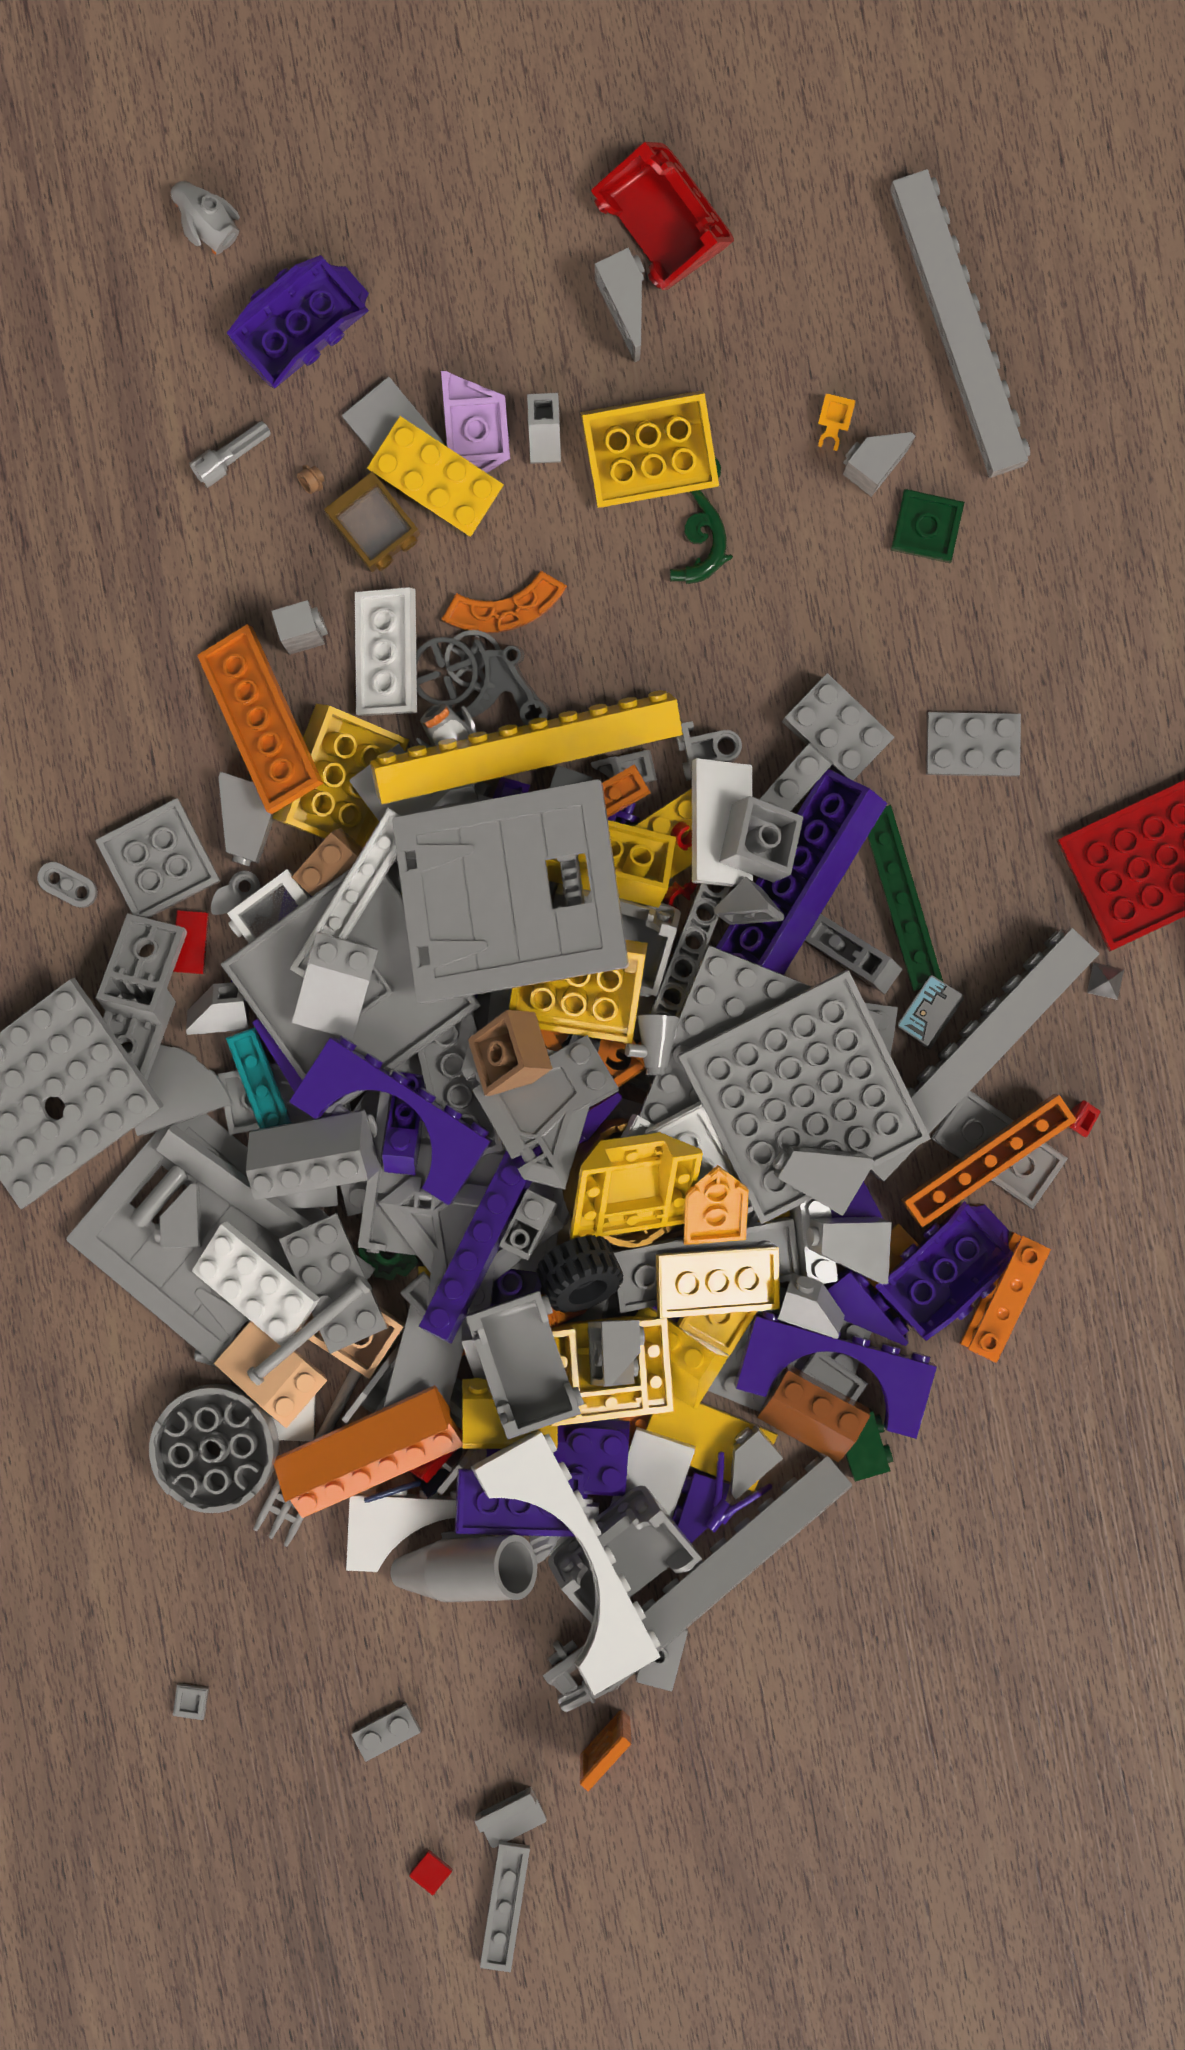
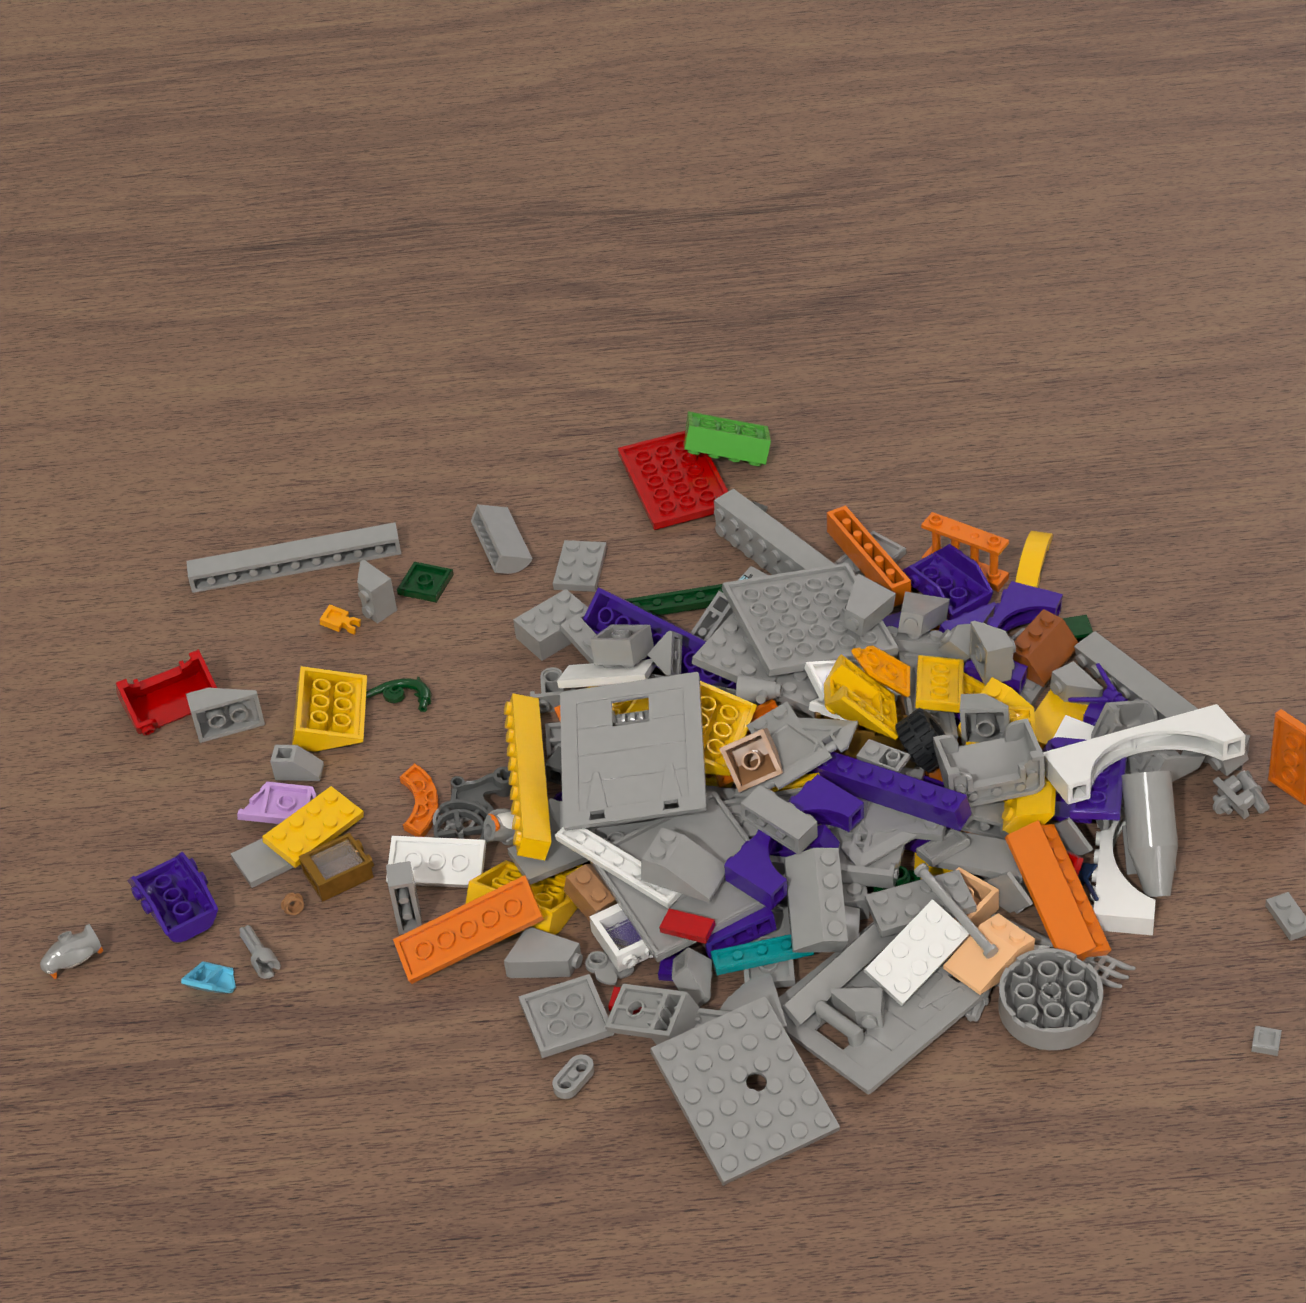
camera: 80 degrees left, 45 degrees down
(179, 405) = (210, 978): none -> medium azure slope
(261, 998) = (687, 926): none -> red tile
(395, 1102) = (779, 819): none -> light grey brick
(759, 1350) = (991, 652): none -> light grey slope
(1015, 620) = (500, 539): none -> light grey brick
(1021, 1390) = (1033, 557): none -> yellow slope

